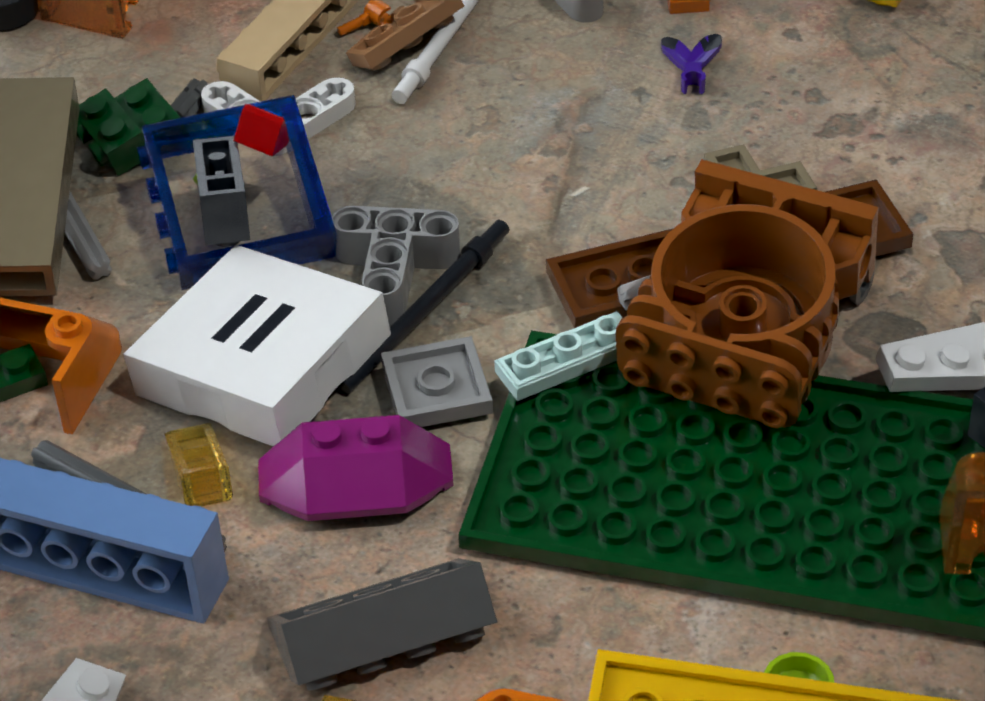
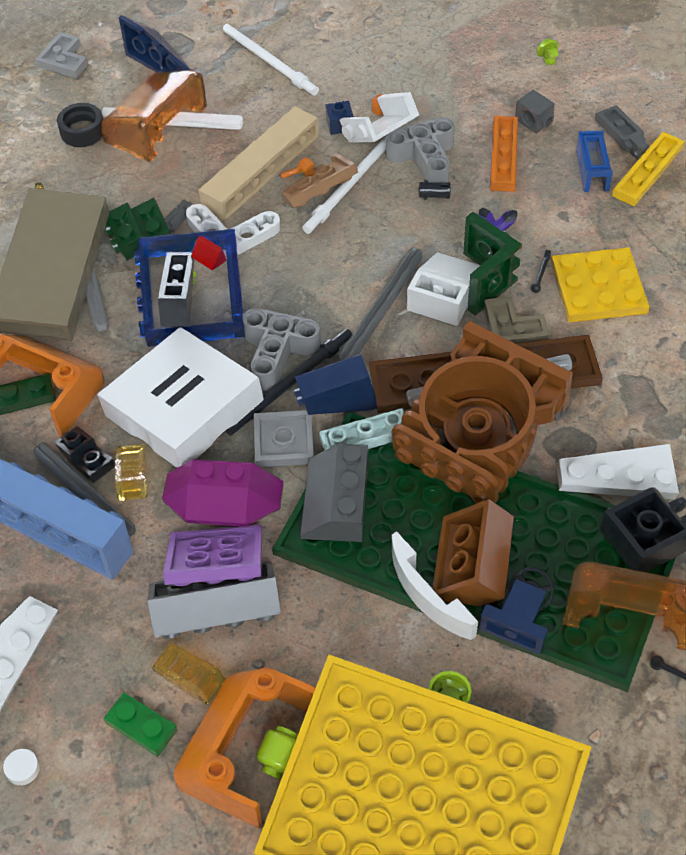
camera: 10 degrees right, 10 degrees up
(113, 448) = (84, 454): none -> black slope
(371, 552) = (214, 555): none -> medium lavender plate
(509, 295) = (336, 388): none -> dark blue slope
(542, 187) = (381, 304): none -> dark grey axle
(545, 440) = (336, 494): none -> dark grey slope
(585, 20) = (434, 190): none -> black pin
(636, 148) = (441, 288): none -> white slope
(706, 110) = (495, 254): none -> dark green bracket
(770, 582) = (453, 616): none -> white slope
(777, 131) = (536, 287): none -> black hinge
(783, 493) = (474, 554): none -> dark orange slope
(872, 116) = (599, 285): none -> yellow plate
(875, 570) = (517, 616): none -> dark blue piece

